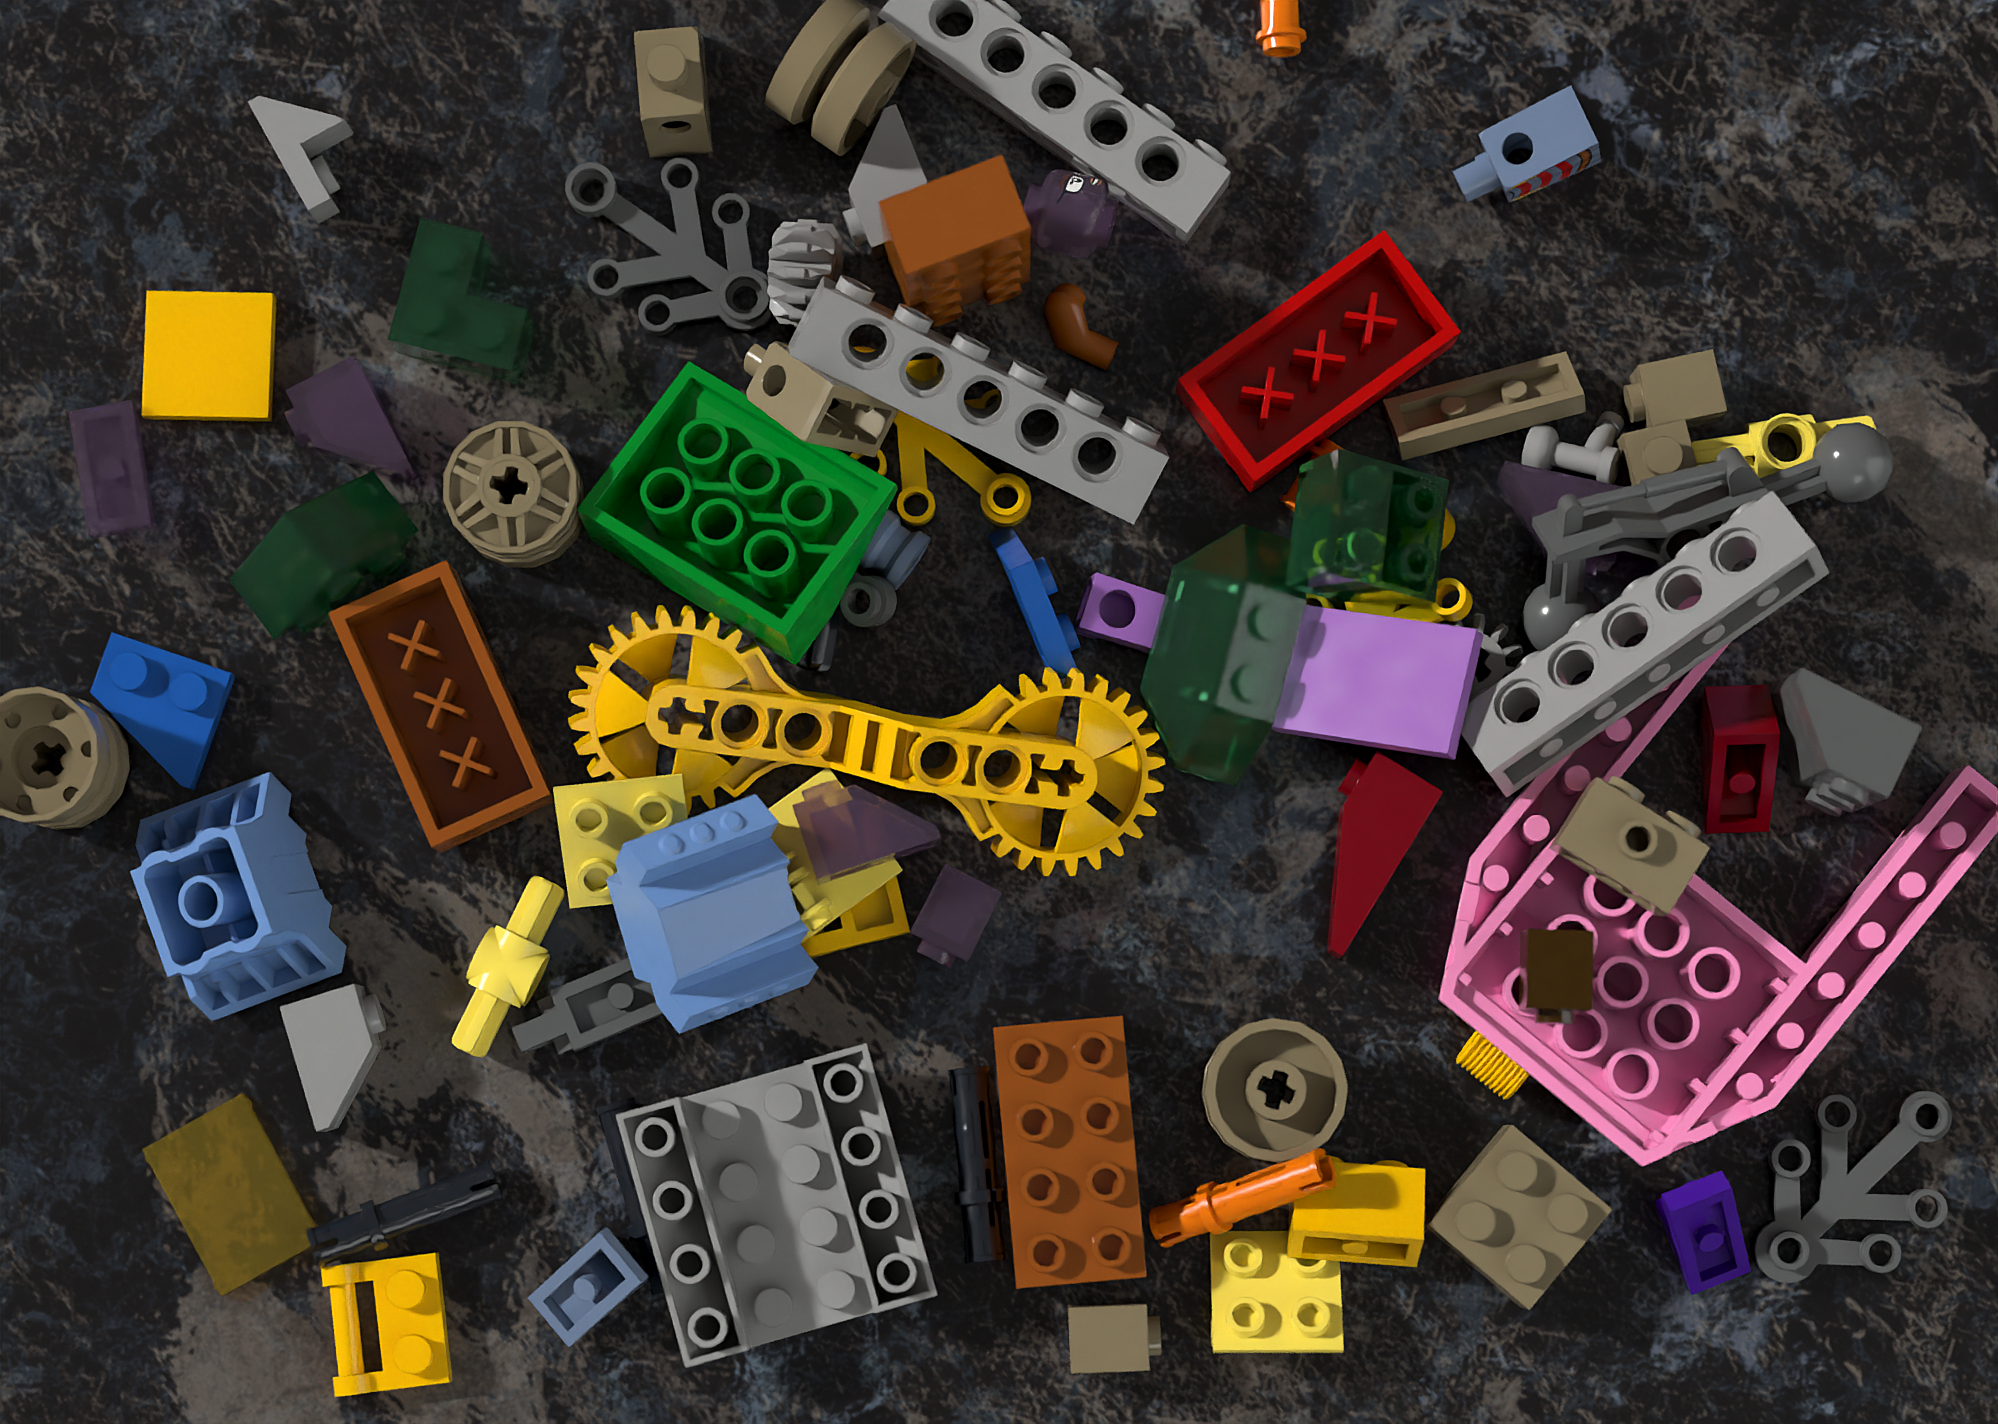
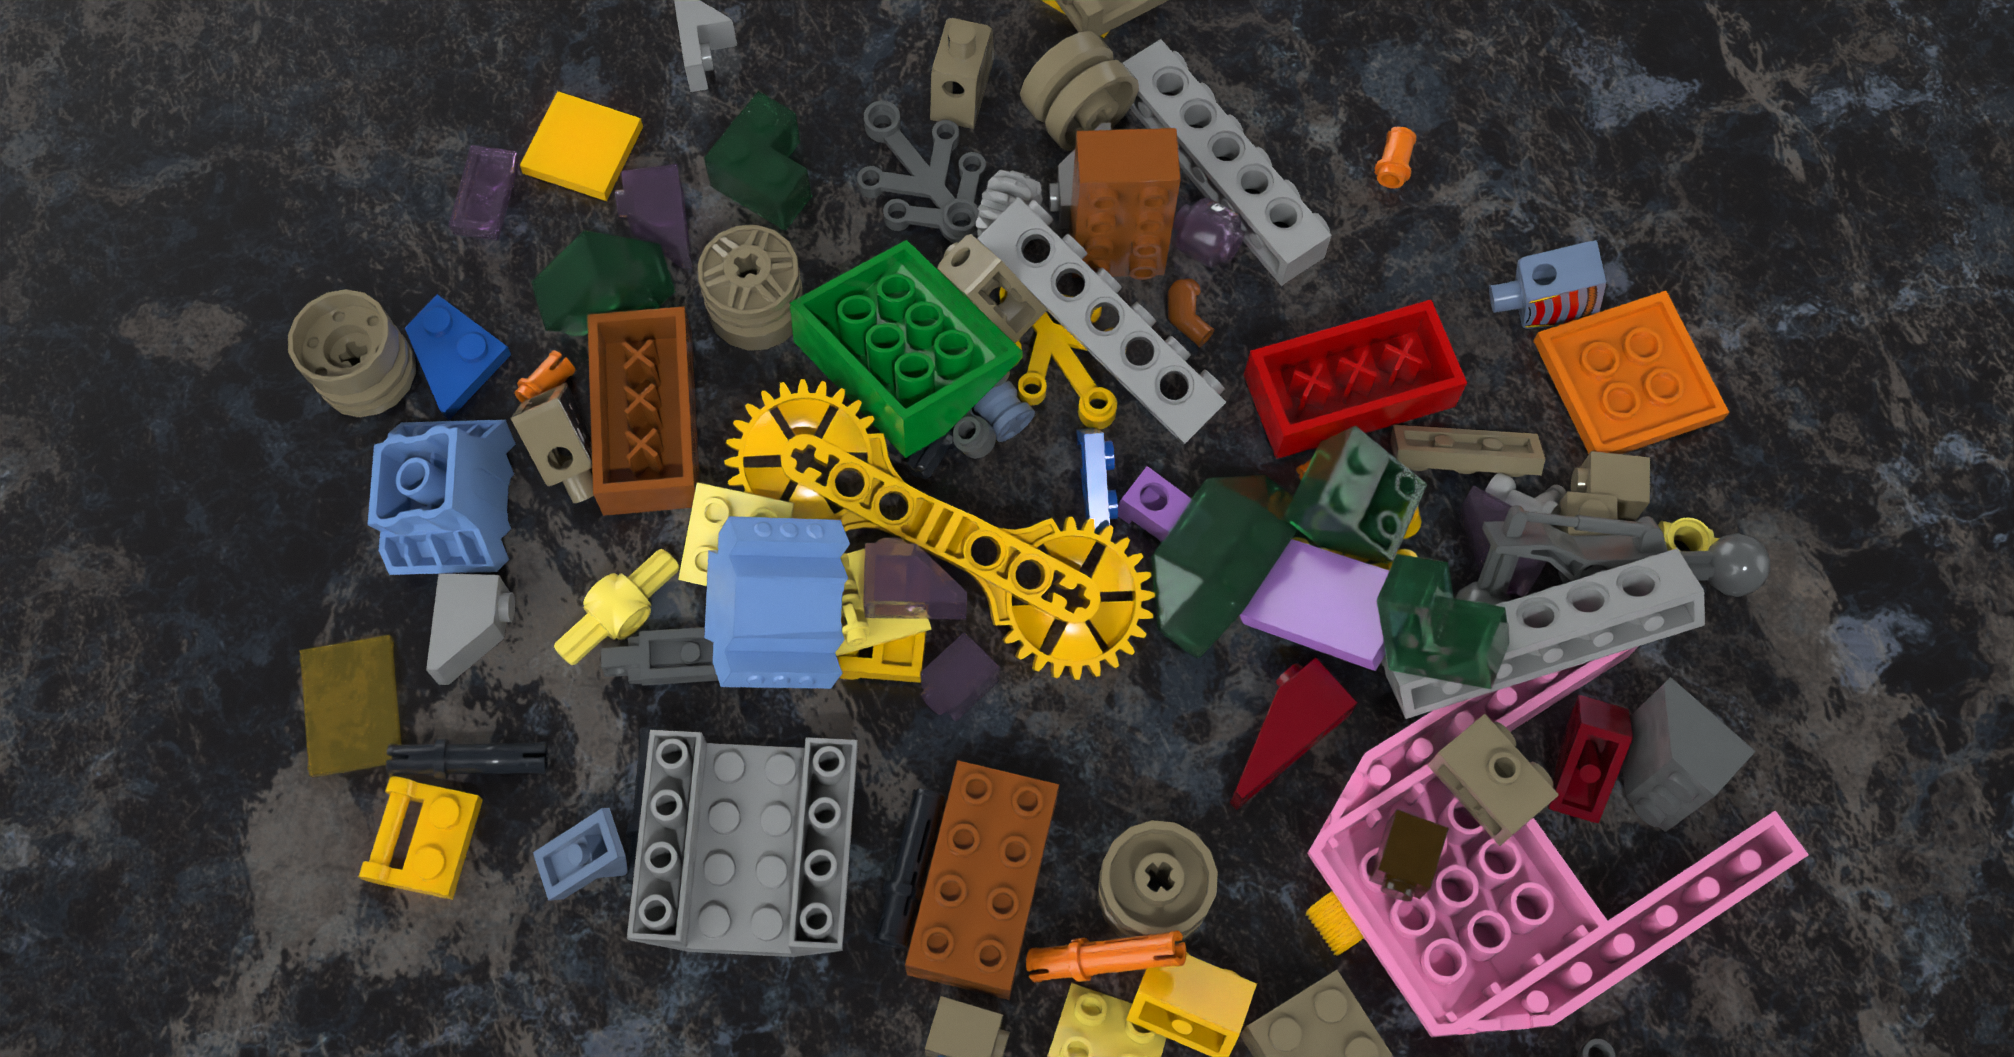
camera: 15 degrees right, 15 degrees down
(297, 707) = (545, 377): none -> orange pin
(352, 783) = (554, 422): none -> dark tan torso
(1513, 699) = (1433, 632): none -> clear green brick
(1661, 231) = (1630, 375): none -> orange plate

